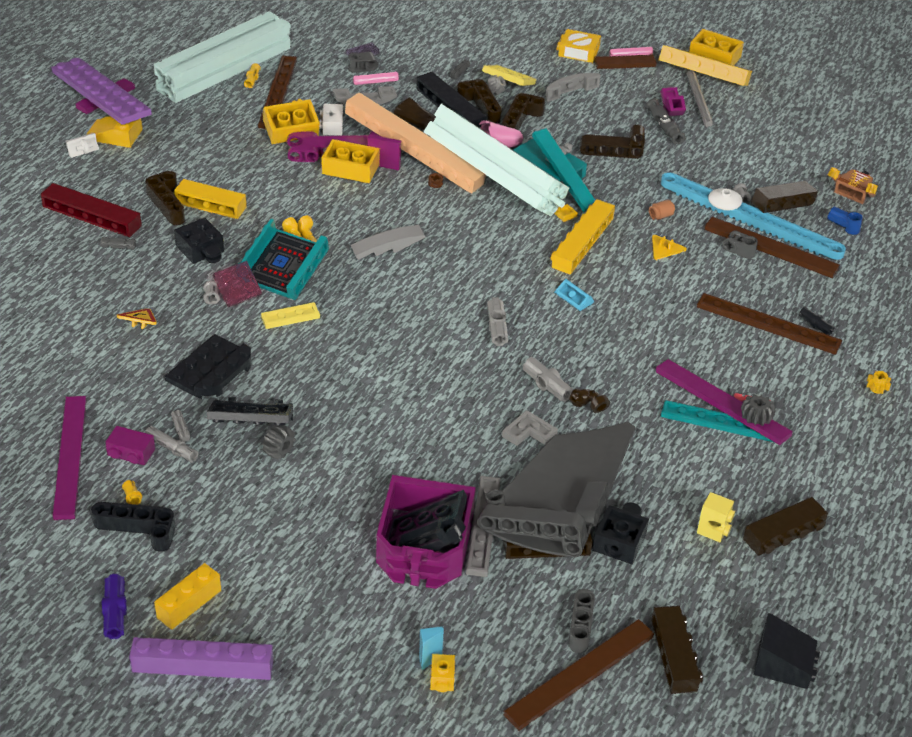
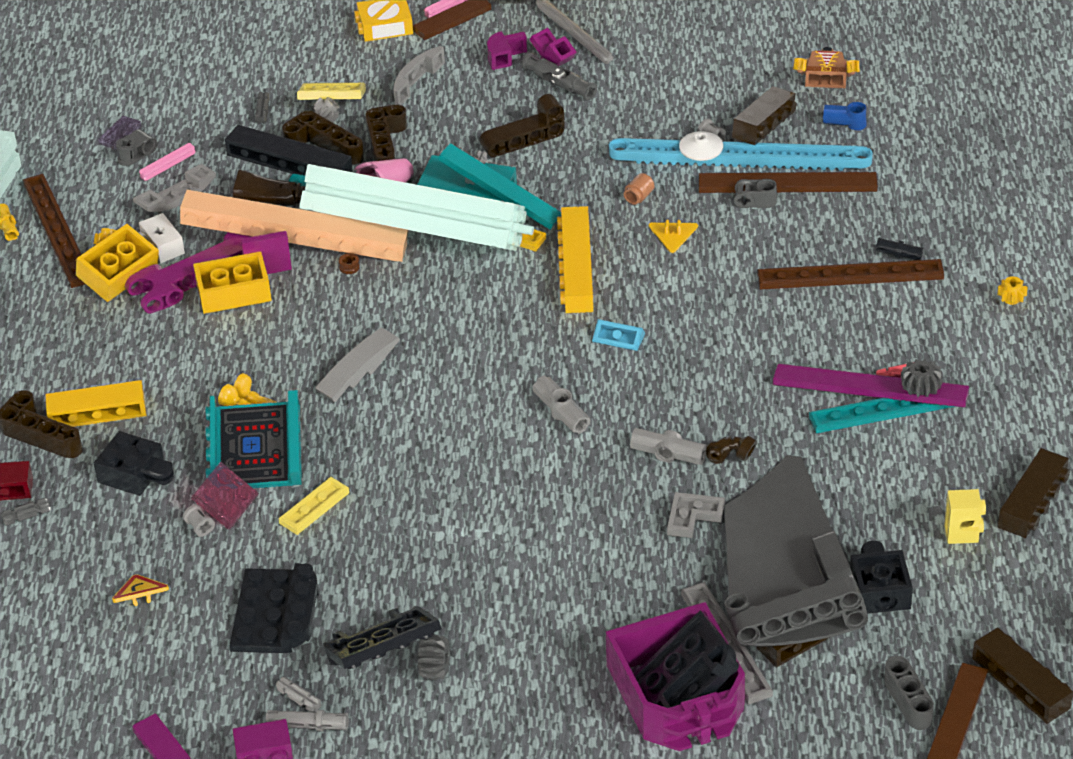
camera: 25 degrees left, 0 degrees up
(640, 89) = (501, 48): none -> magenta brick

